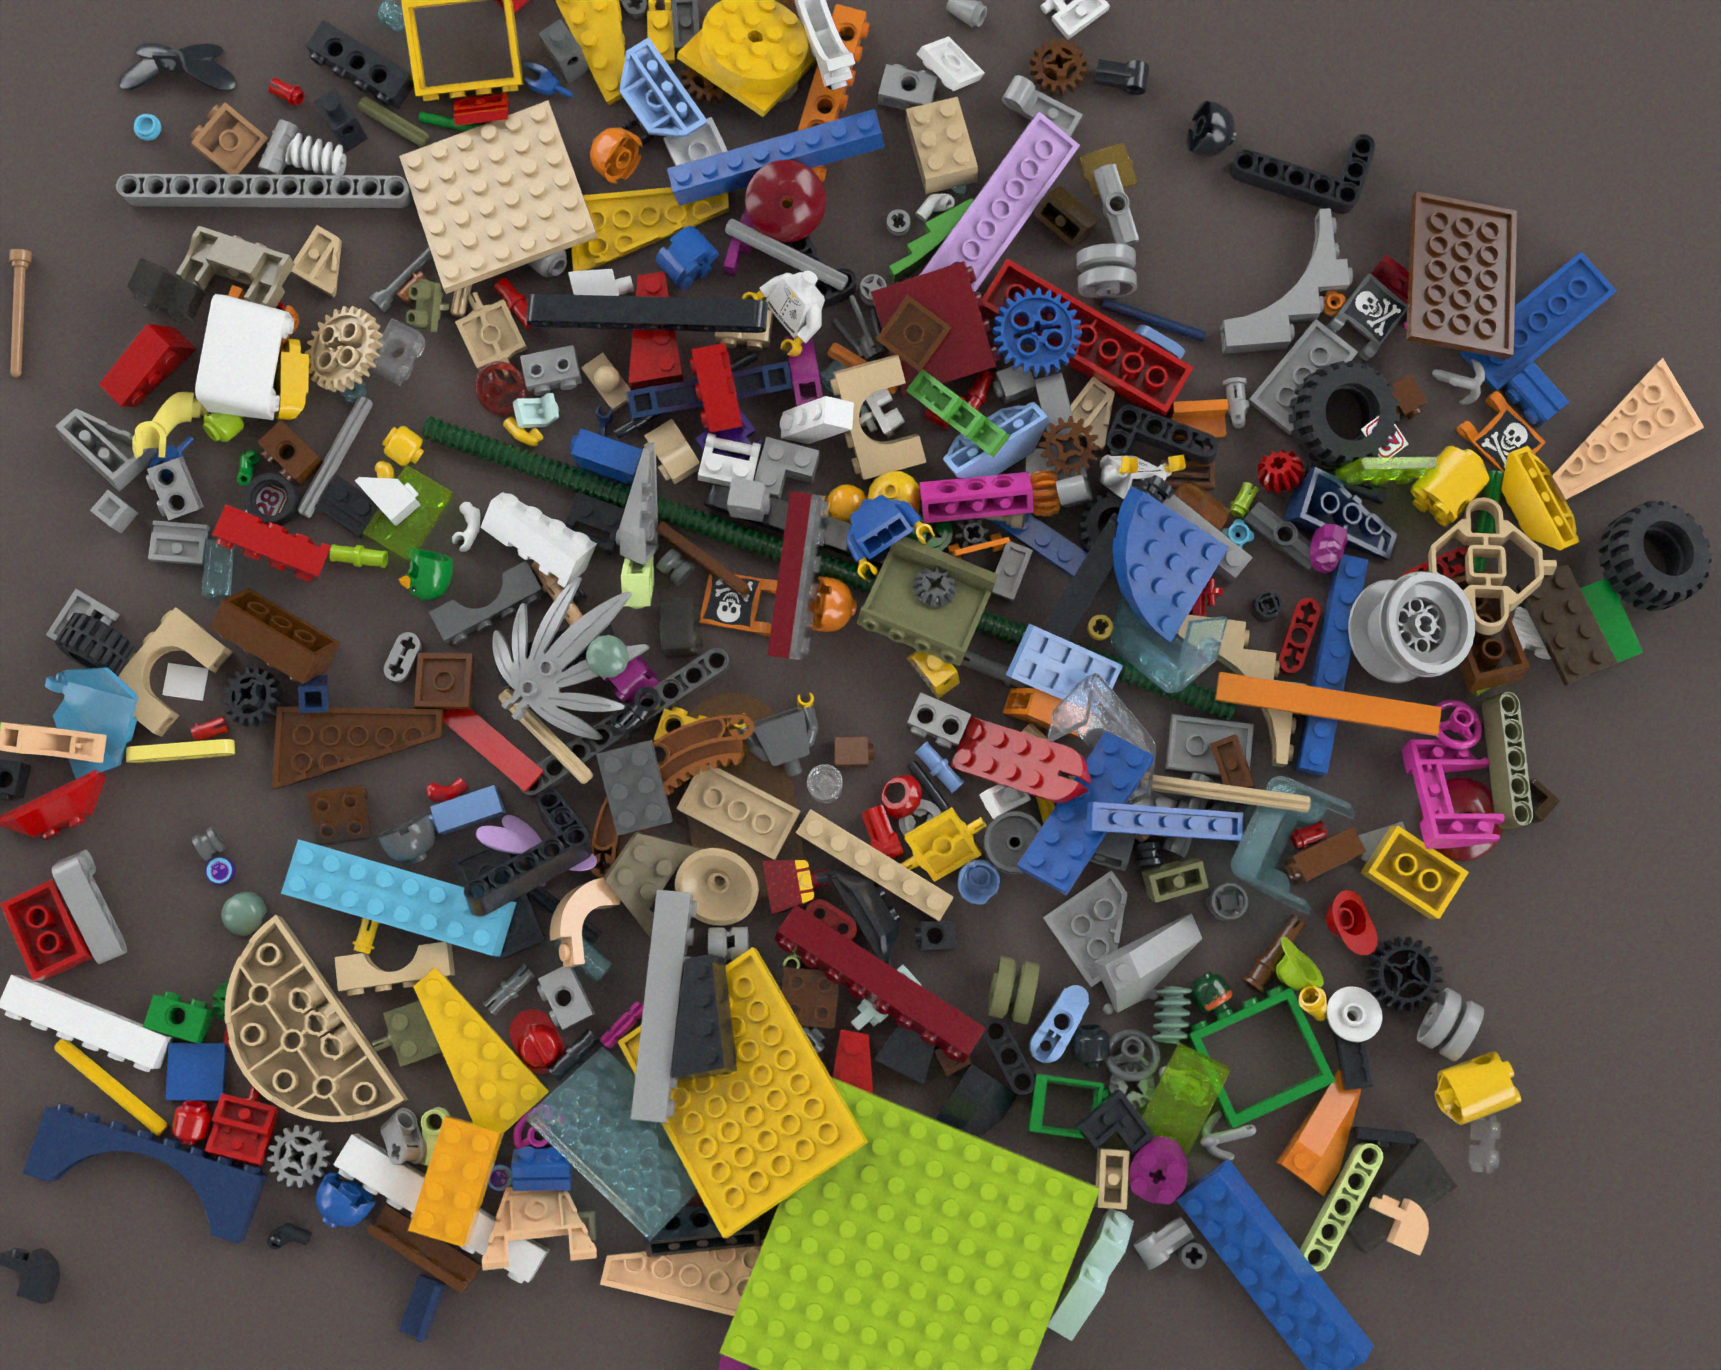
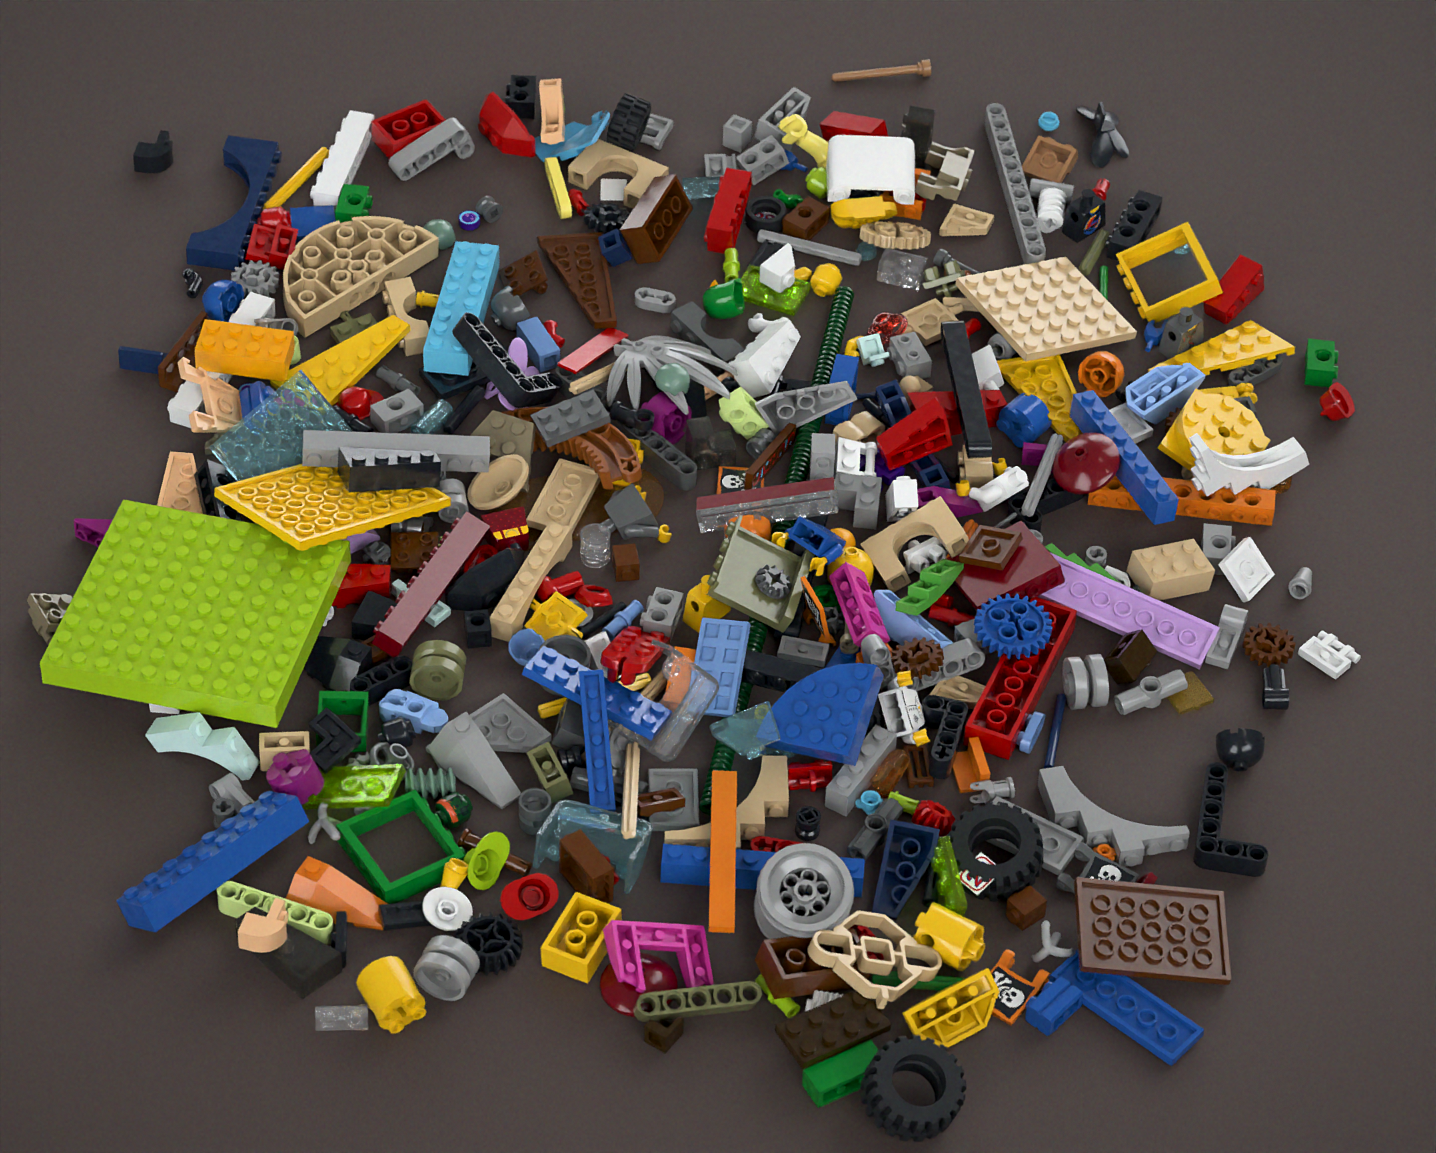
camera: 80 degrees right, 35 degrees down
(444, 681) = (639, 320): reddish brown plate -> none
(481, 108) = (1118, 295): red plate -> none
(571, 913) = (461, 396): light nougat arch -> none
(1159, 489) = (887, 717): black wheel -> none
(1327, 547) = (867, 847): magenta rock -> none
(1459, 722) = (729, 962): dark pink piece -> none
(1641, 425) = (1036, 1084): light nougat wing -> none

